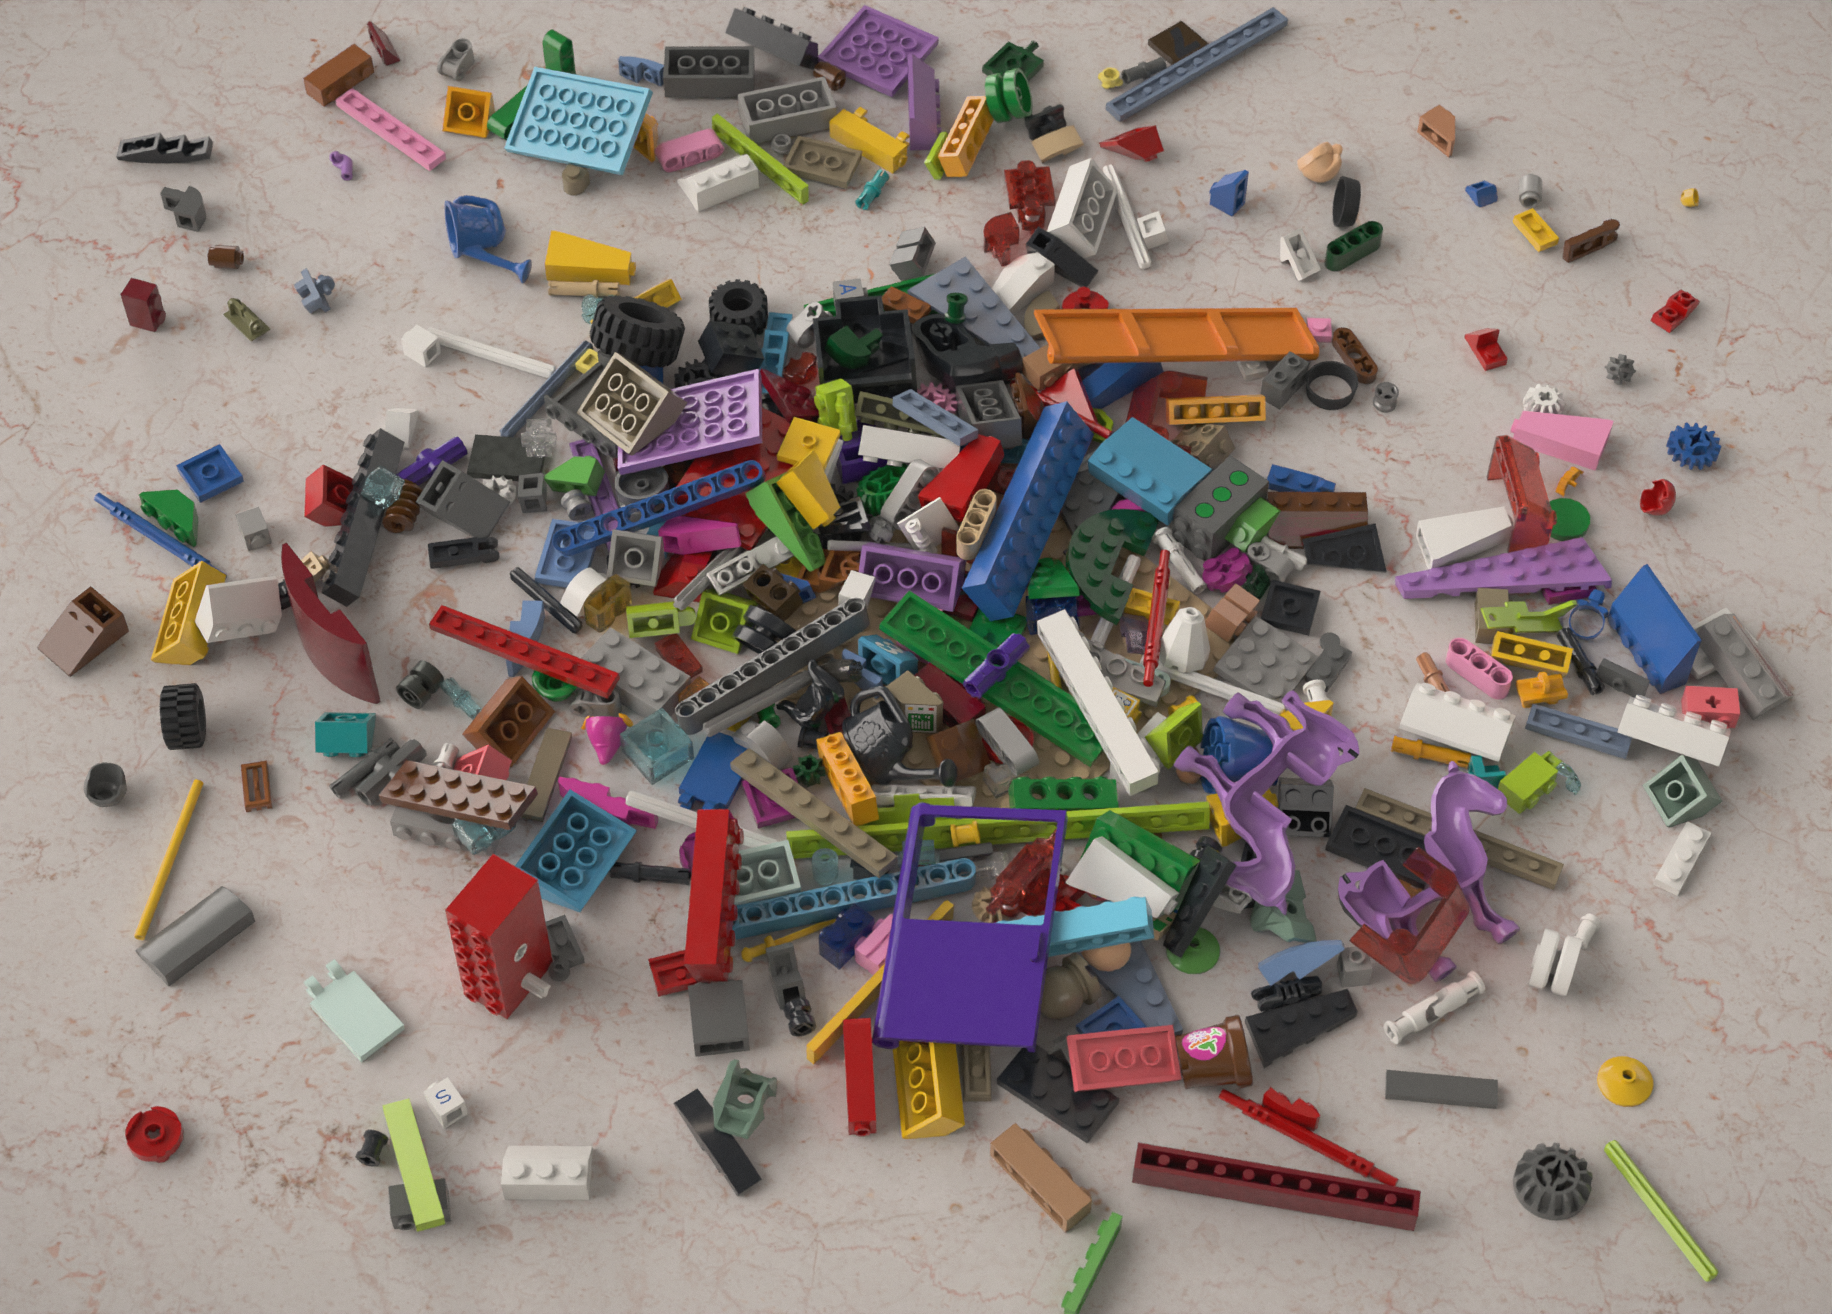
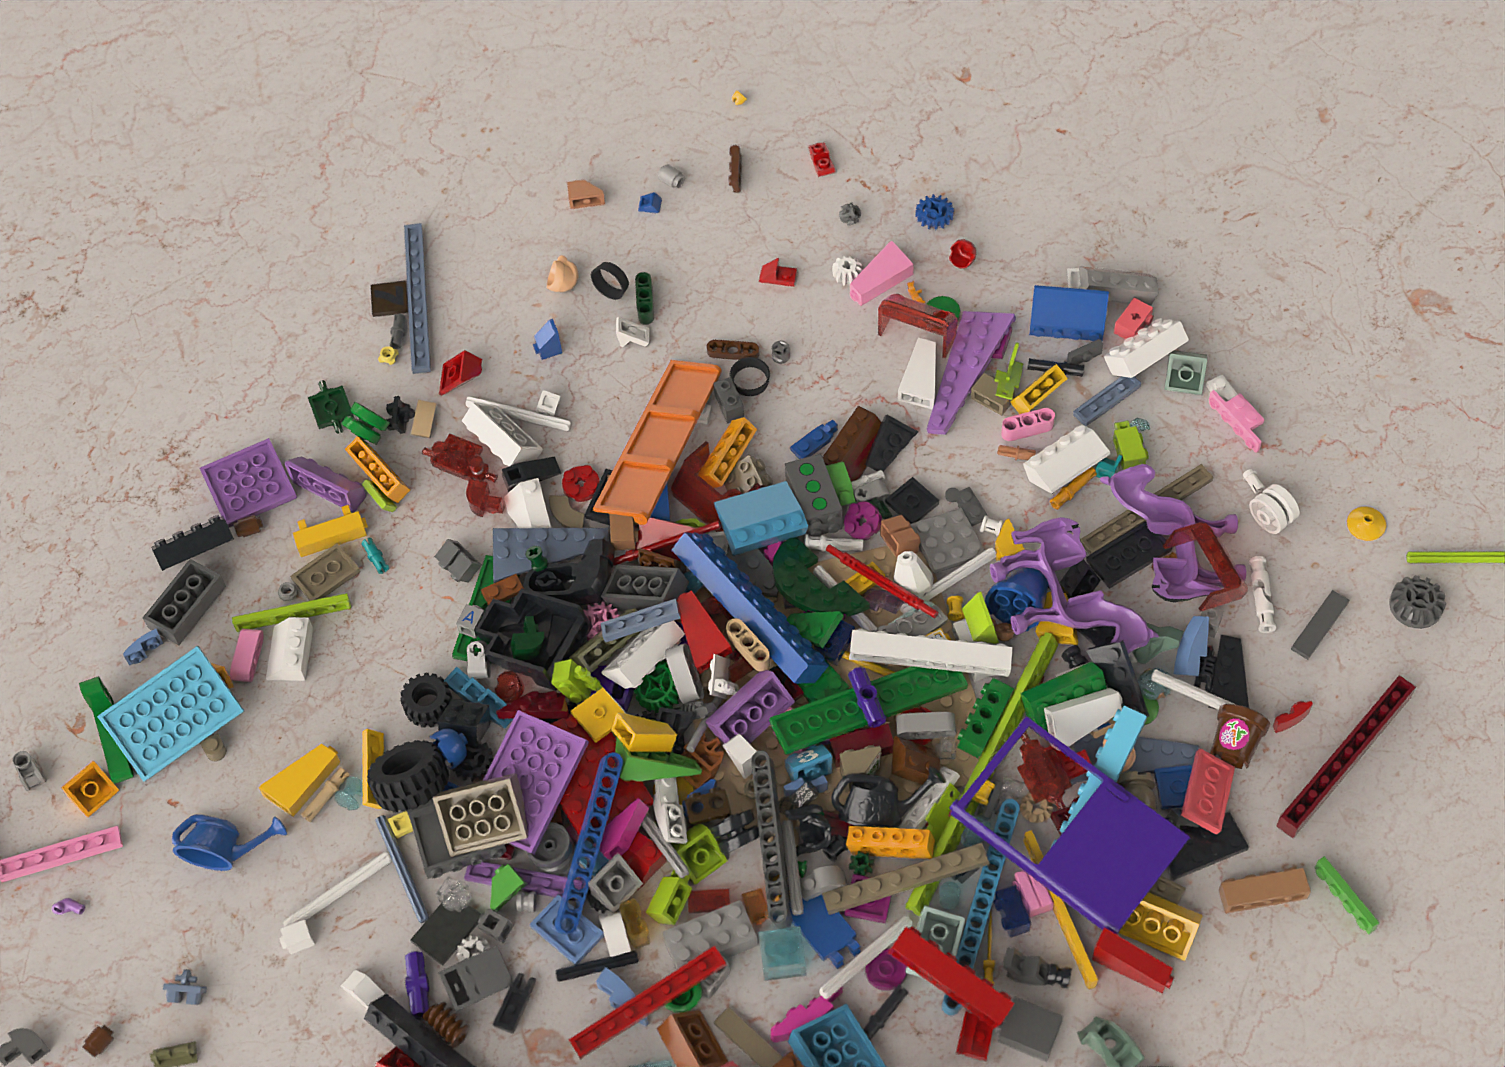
camera: 55 degrees left, 5 degrees up
(382, 487) = (428, 1028): clear light blue panel -> none
(605, 734) = (748, 983): dark pink hat -> none
(689, 345) = (451, 746): none -> blue cylinder
(787, 109) = (263, 570): light grey brick -> none
(1231, 948) = (1151, 689): none -> clear light blue hair
(1245, 1005) = (1188, 690): none -> white axle
(1308, 1138) = (1316, 718): red axle -> none
(1320, 329) = (697, 355): bright pink plate -> none
(1535, 230) = (704, 192): yellow plate -> none
(1541, 689) = (1067, 401): light orange hips -> none
(1595, 603) = (1018, 331): blue piece -> none
(1666, 875) = (1240, 416): none -> bright pink bracket

